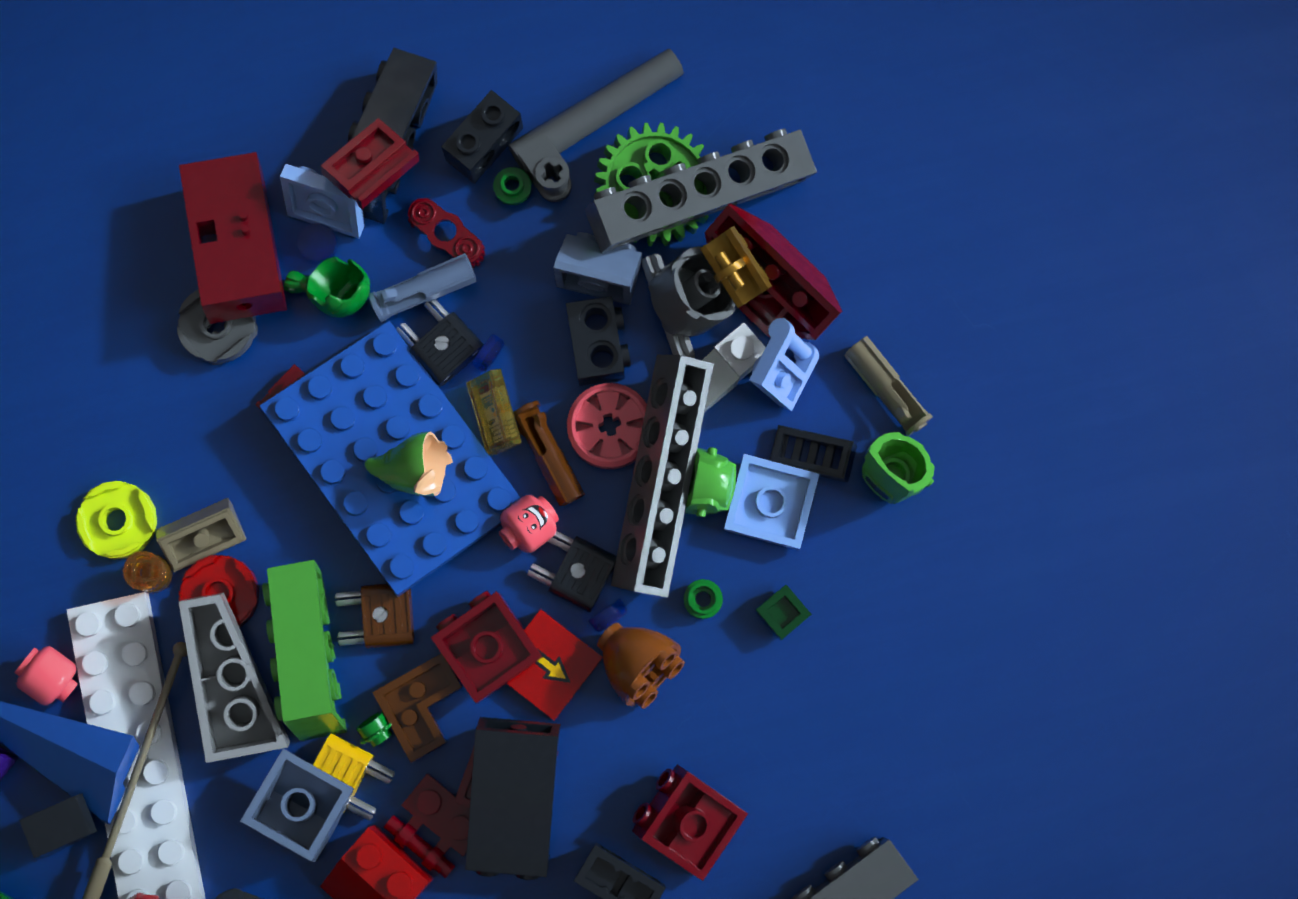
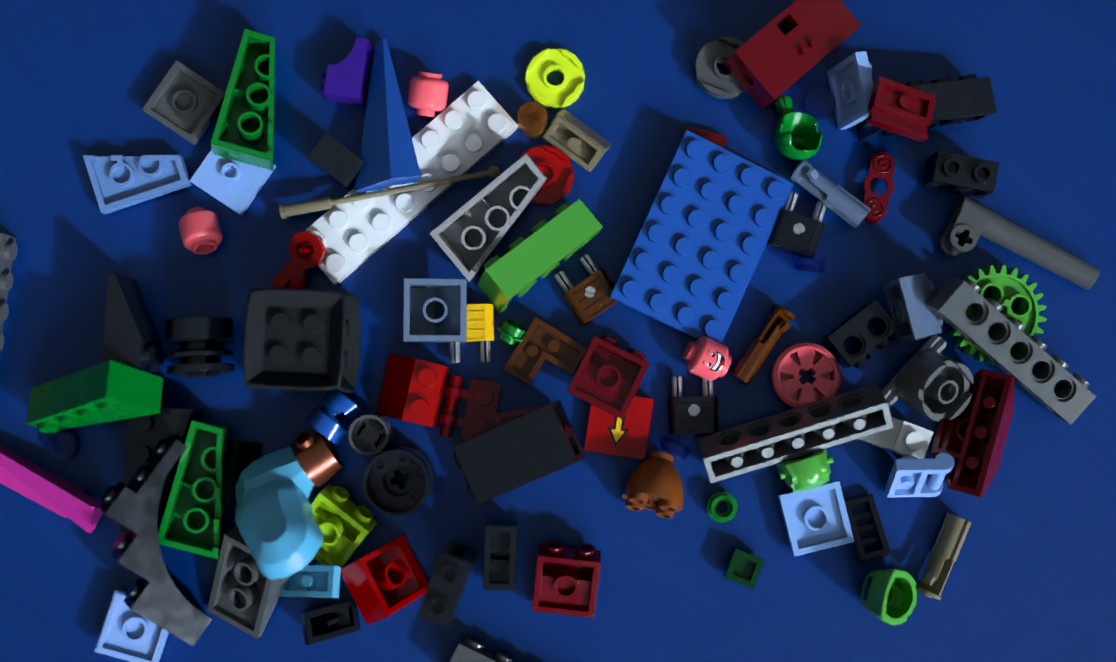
camera: 60 degrees right, 5 degrees up
(414, 465) = (705, 258): bright green hat -> none
(494, 412) = (770, 291): clear yellow tile -> none
(516, 196) = (928, 218): green plate -> none
(736, 267) = (971, 405): pearl gold hips -> none

